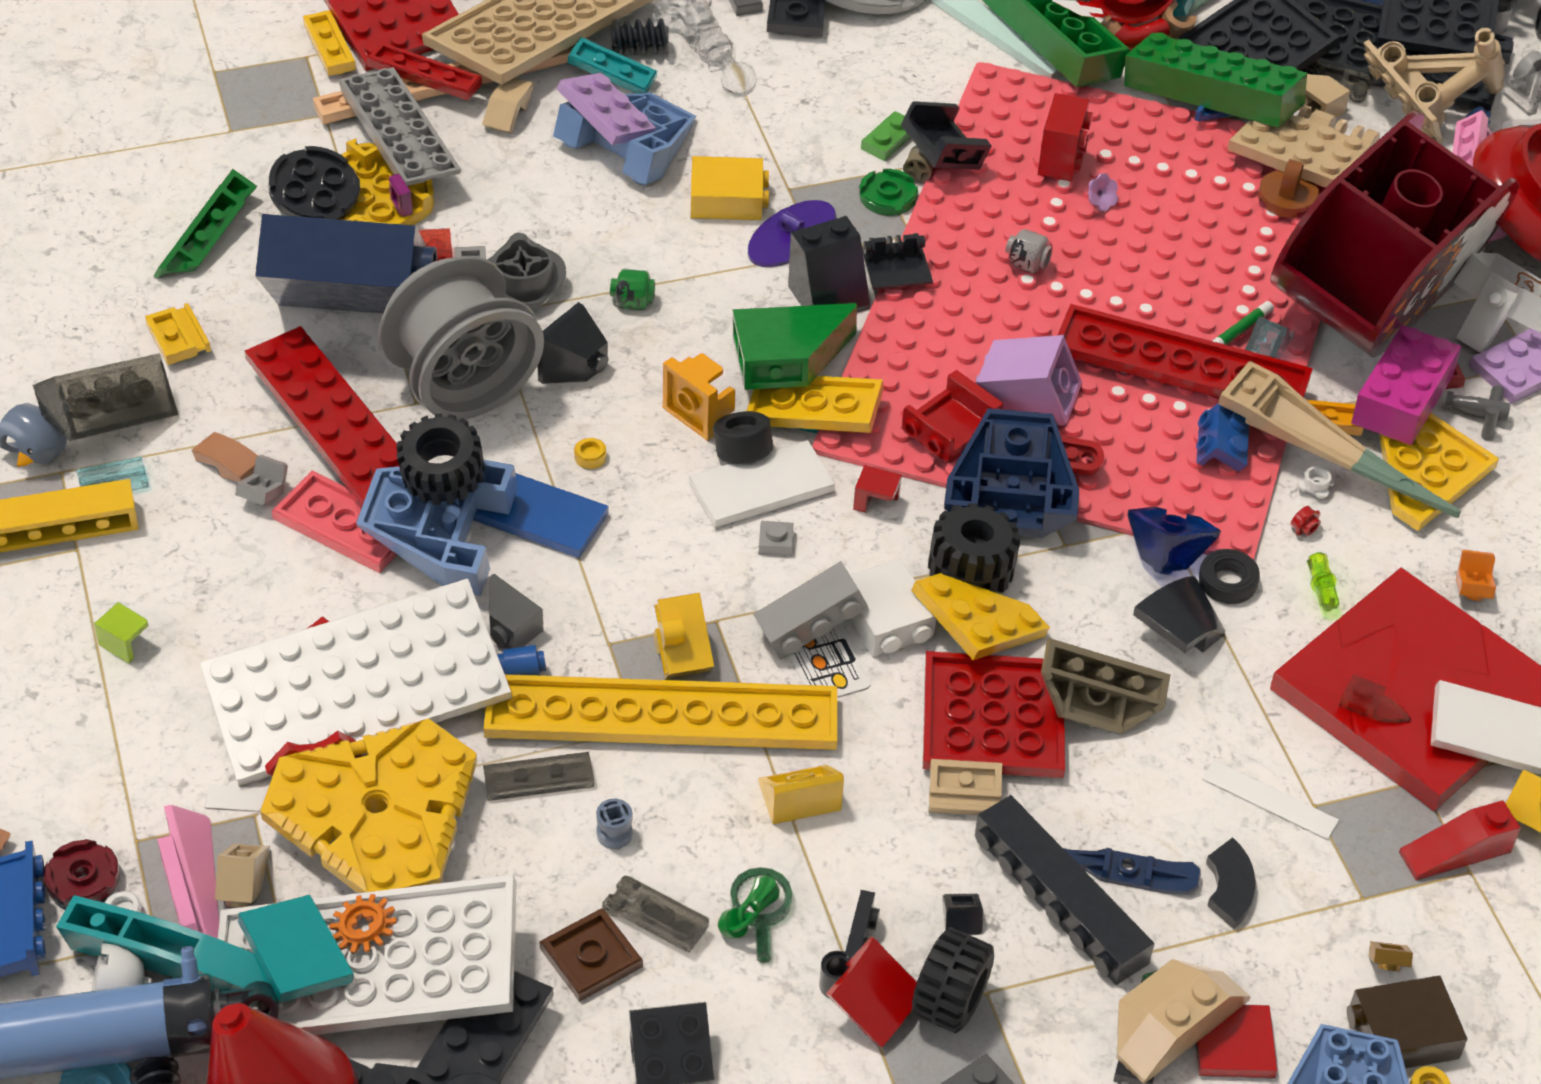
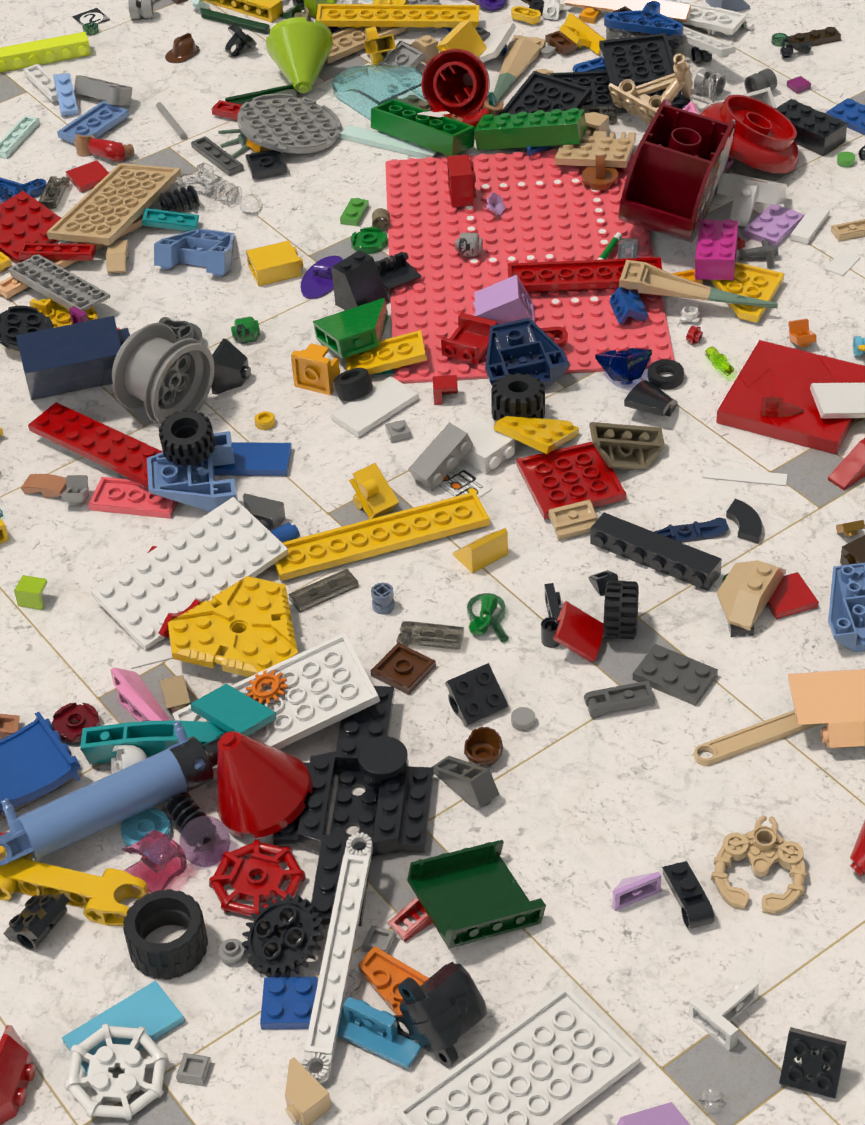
camera: 15 degrees left, 5 degrees down
(605, 108) = (182, 238): lavender plate -> none
(940, 139) = (380, 197): black panel -> none

